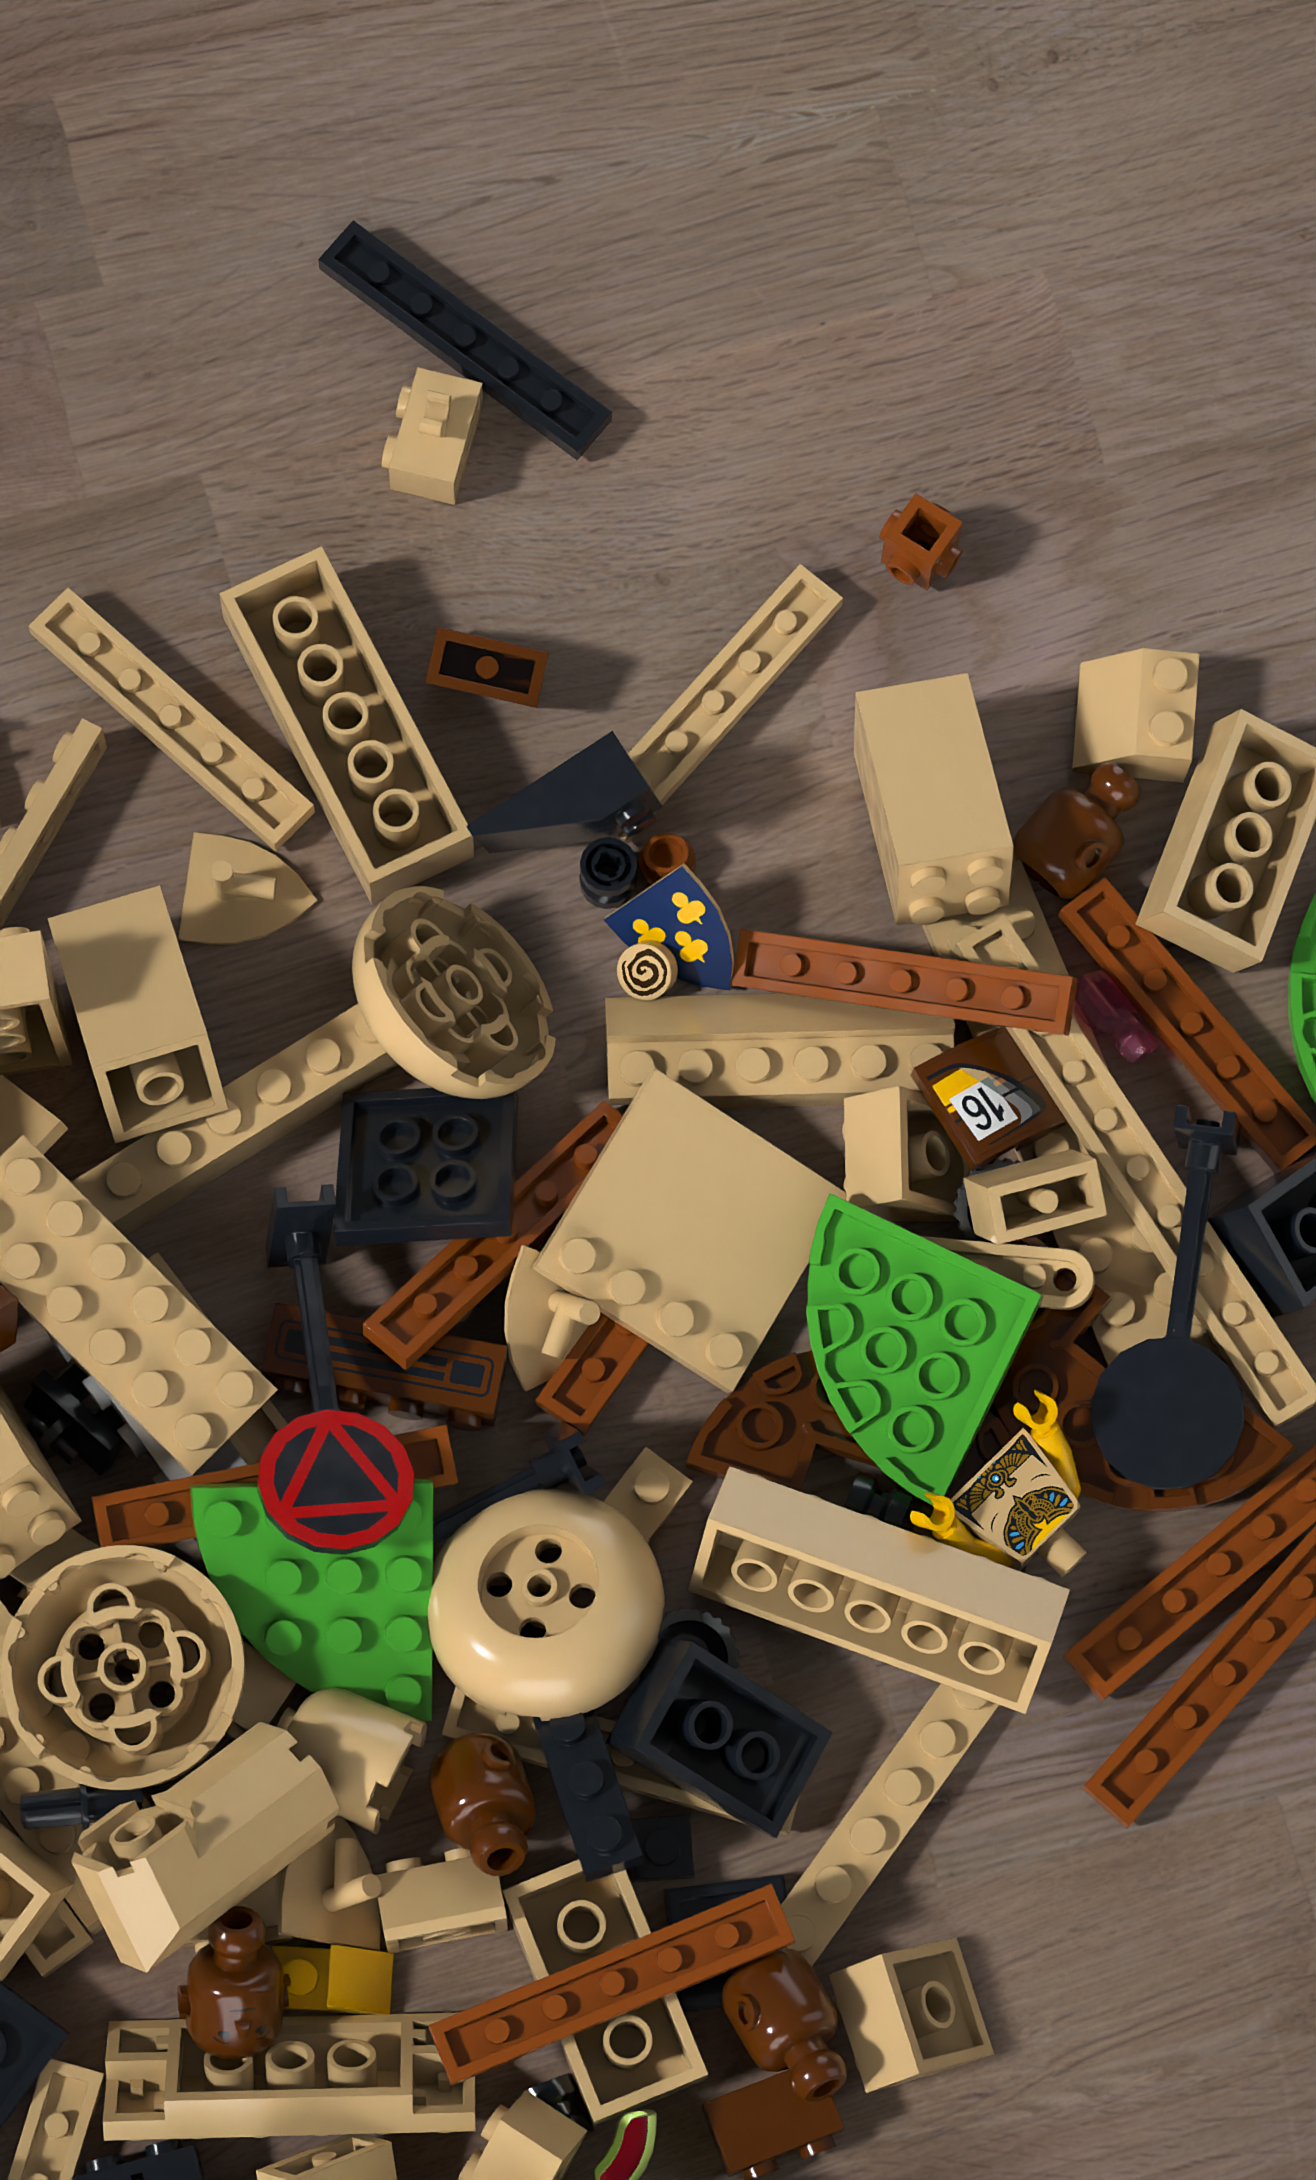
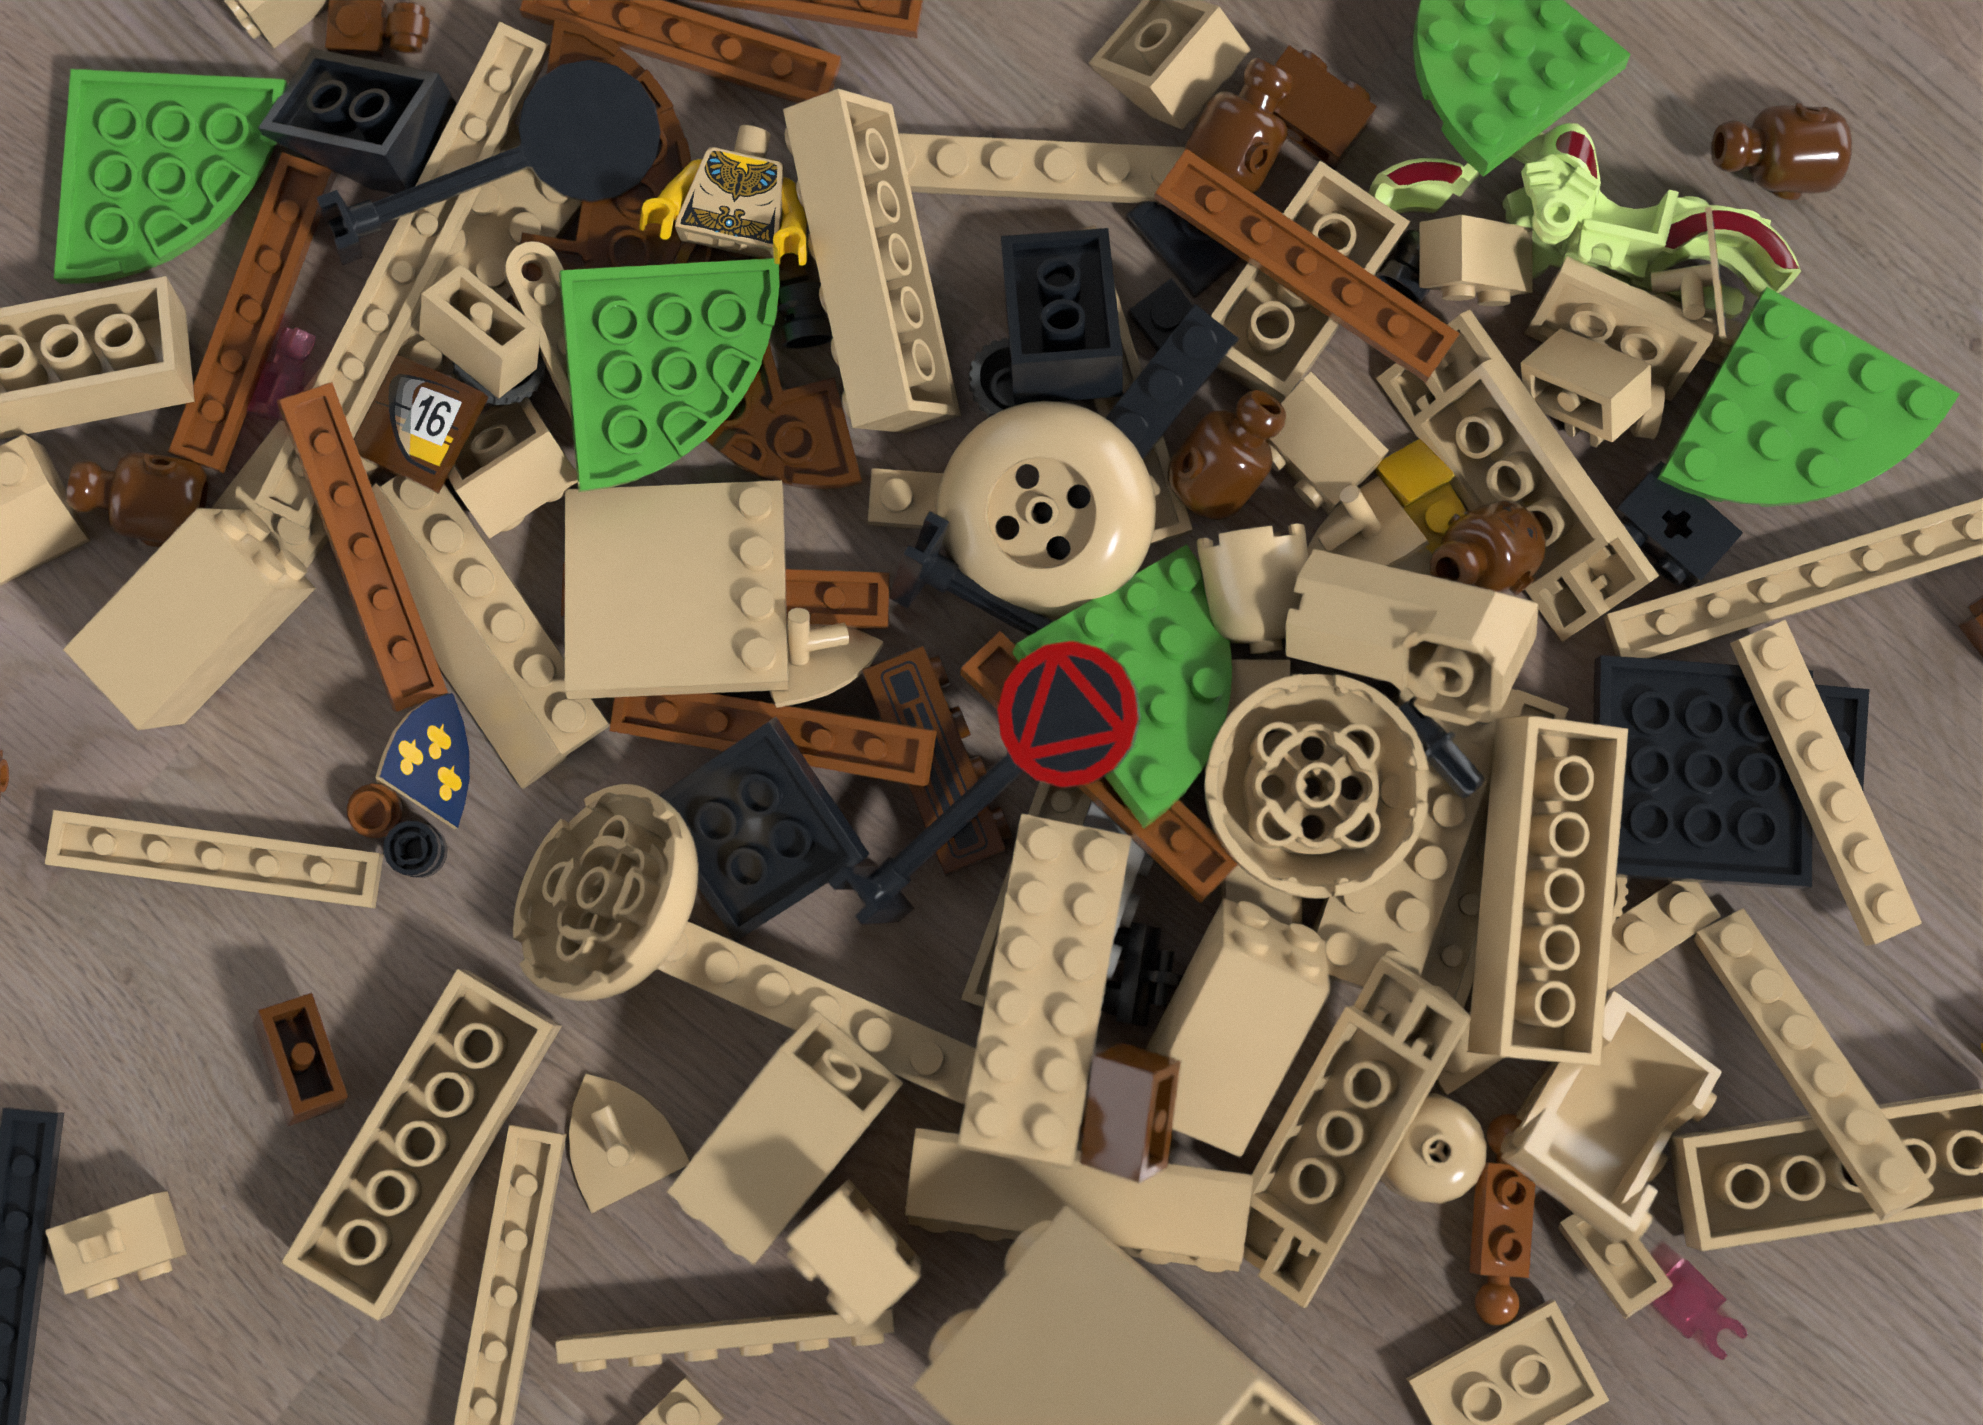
camera: 120 degrees left, 10 degrees up
(578, 801) = (371, 894): black slope -> none
(647, 970) = (478, 766): tile -> none

